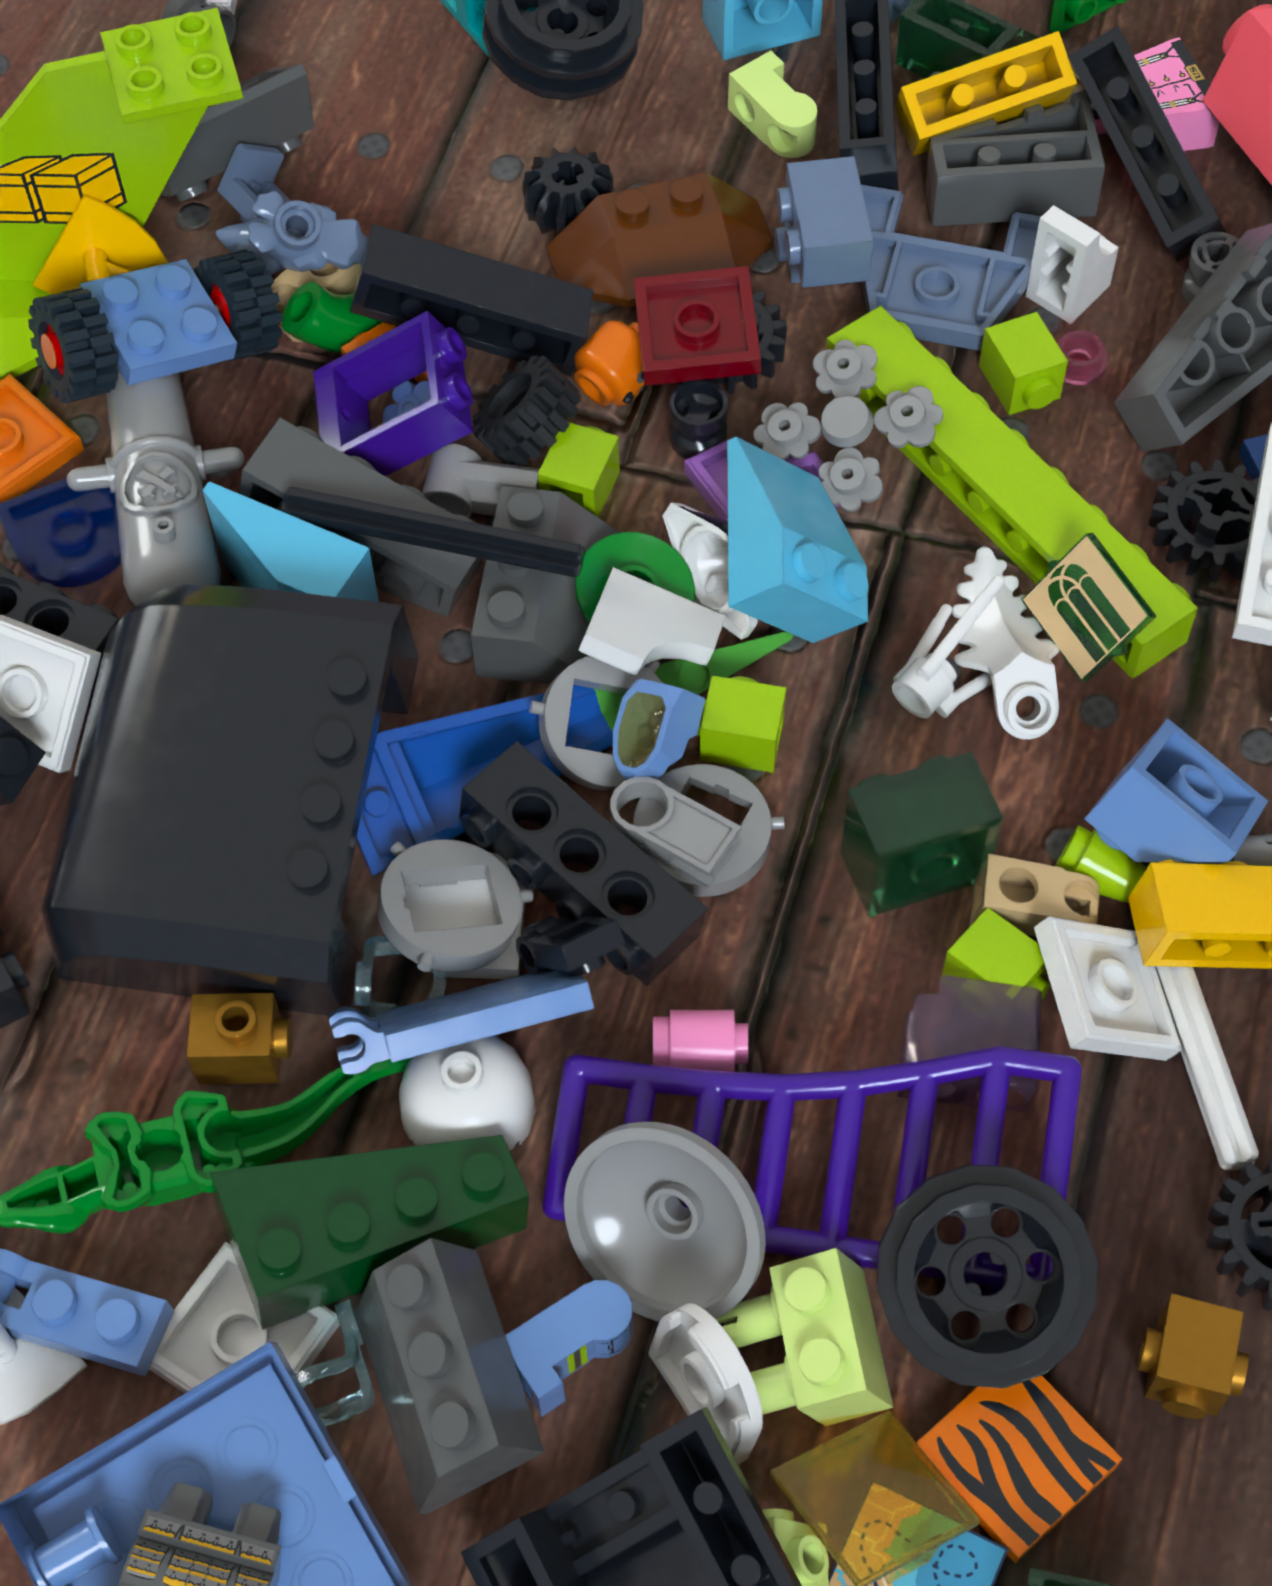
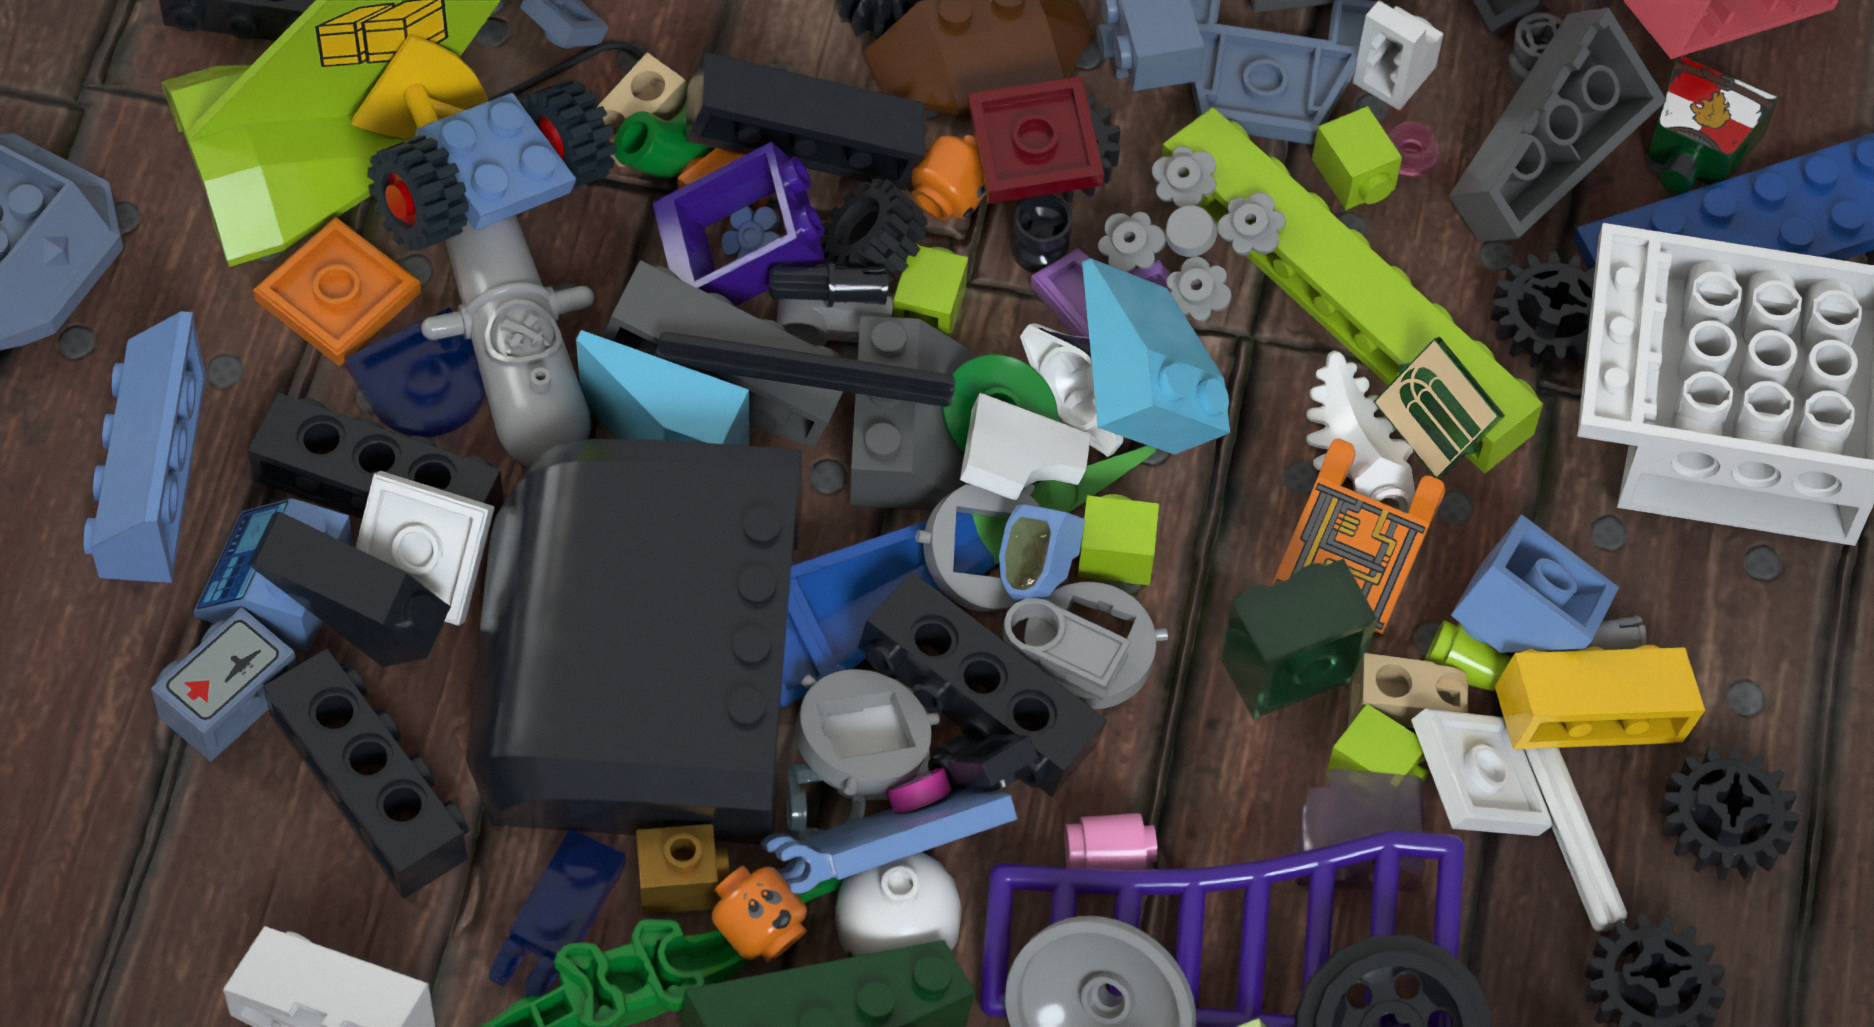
camera: 10 degrees left, 0 degrees up
(110, 1073) = (559, 909): none -> clear blue hinge
(296, 236) = (618, 62): sand blue animal -> none
(309, 1093) = (759, 913): none -> orange head
(472, 453) = (830, 284): none -> black axle
(501, 971) = (919, 791): none -> dark pink tile
(928, 679) = (1287, 488): white plant -> none
(1005, 734) = (1369, 535): none -> flag

